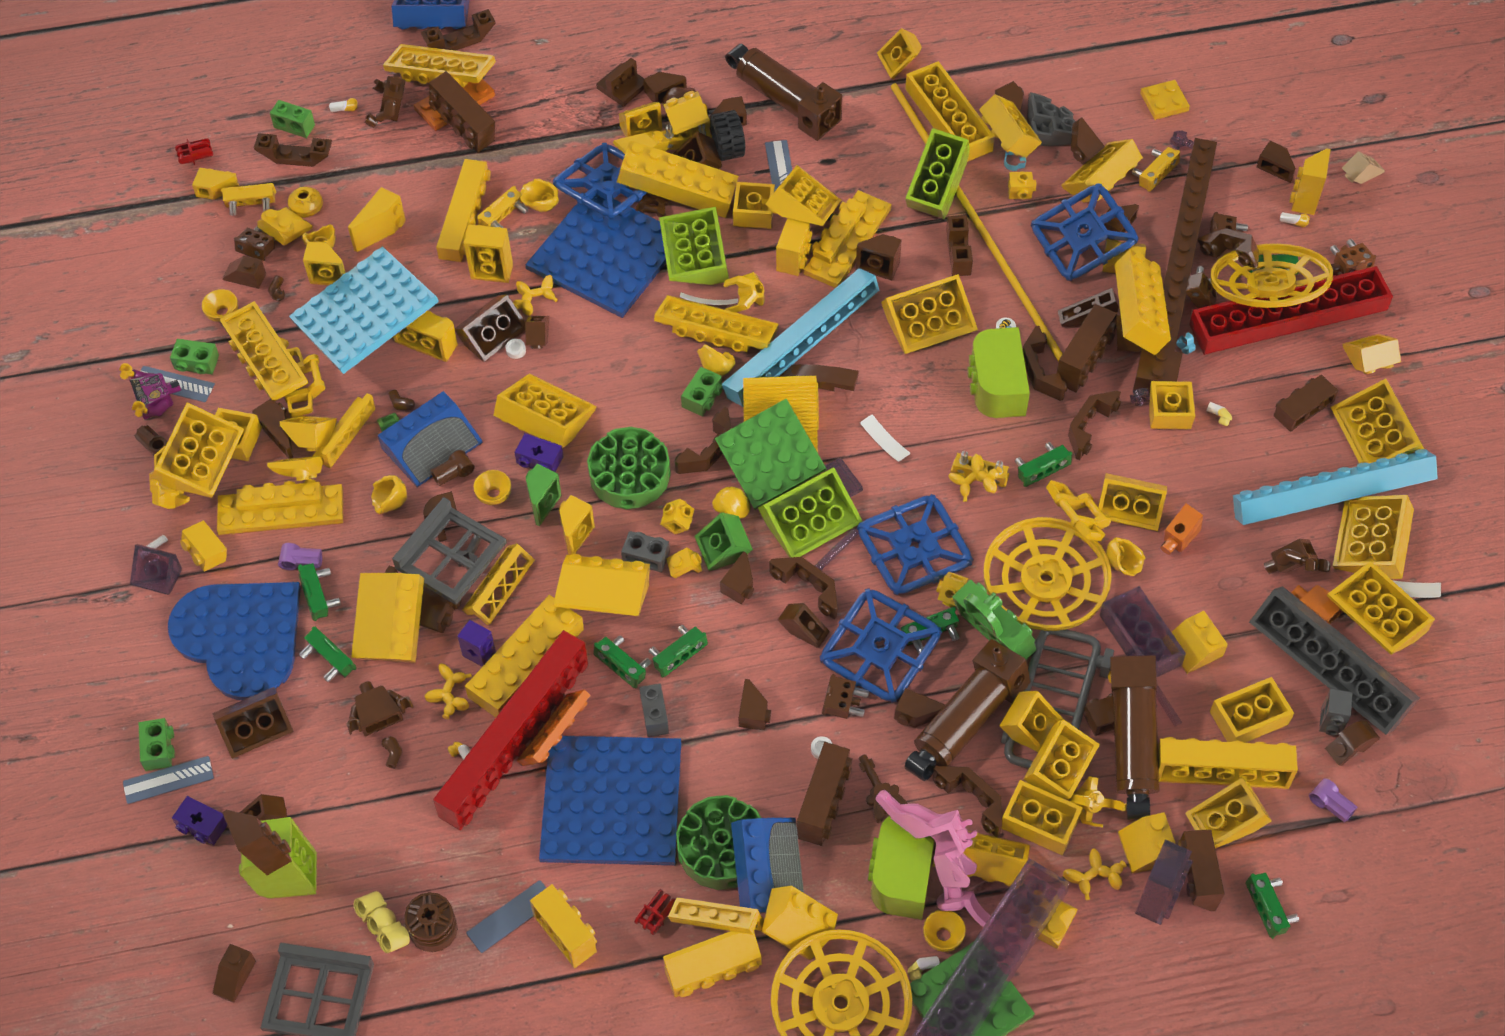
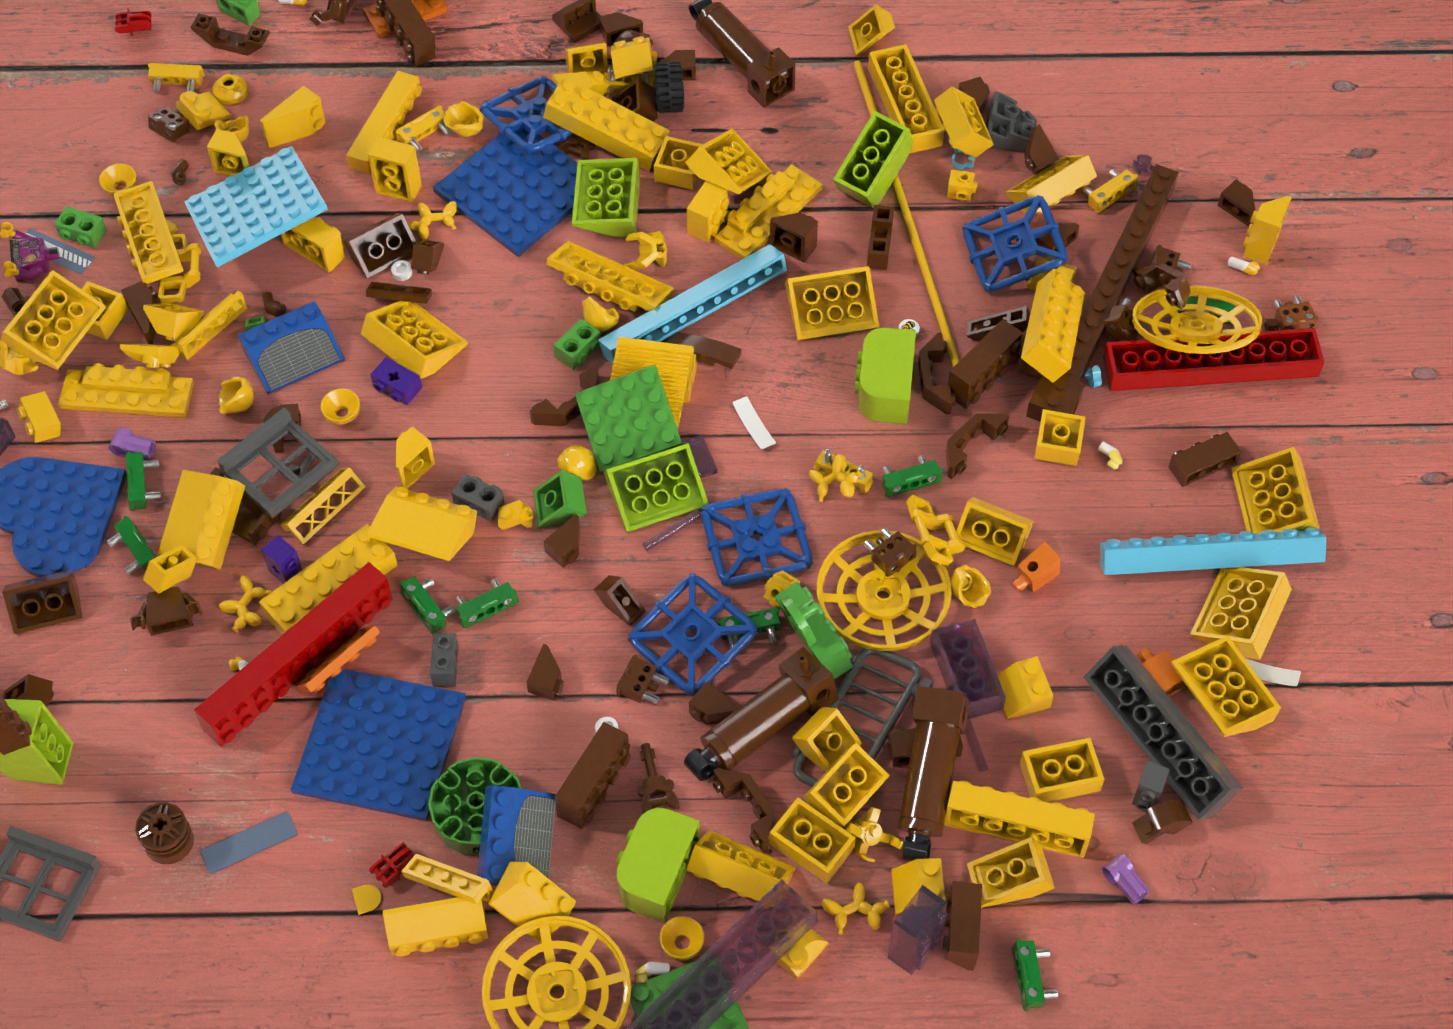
camera: 10 degrees right, 0 degrees up
(210, 182) = (140, 54): yellow slope -> none
(246, 272) = (153, 151): reddish brown slope -> none
(372, 669) = (170, 569): none -> yellow brick
(381, 922) = (116, 824): light yellow piece -> none
(393, 747) = (176, 655): reddish brown arm -> none
(457, 465) = (312, 378): reddish brown piece -> none
(519, 370) = (399, 292): none -> reddish brown tile
(543, 491) = (387, 419): bright green slope -> none
(564, 925) = (296, 860): yellow brick -> none
(629, 468) = (482, 409): bright green brick -> none
(637, 948) = (366, 898): none -> yellow piece
(677, 516) = (518, 466): yellow brick -> none
(708, 301) = (607, 253): white sticker -> none
(778, 161) = (718, 118): sand blue sticker -> none
(785, 568) = (618, 538): reddish brown slope -> none
(950, 861) = (701, 867): bright pink piece -> none
(1048, 537) = (891, 553): none -> reddish brown piece
(1140, 396) = (1029, 423): bar -> none
(1164, 99) = (1137, 120): yellow plate -> none
(1294, 556) = (1151, 615): reddish brown torso -> none
(1362, 168) = (1329, 223): tan slope -> none
(1373, 353) = (1290, 418): yellow slope -> none

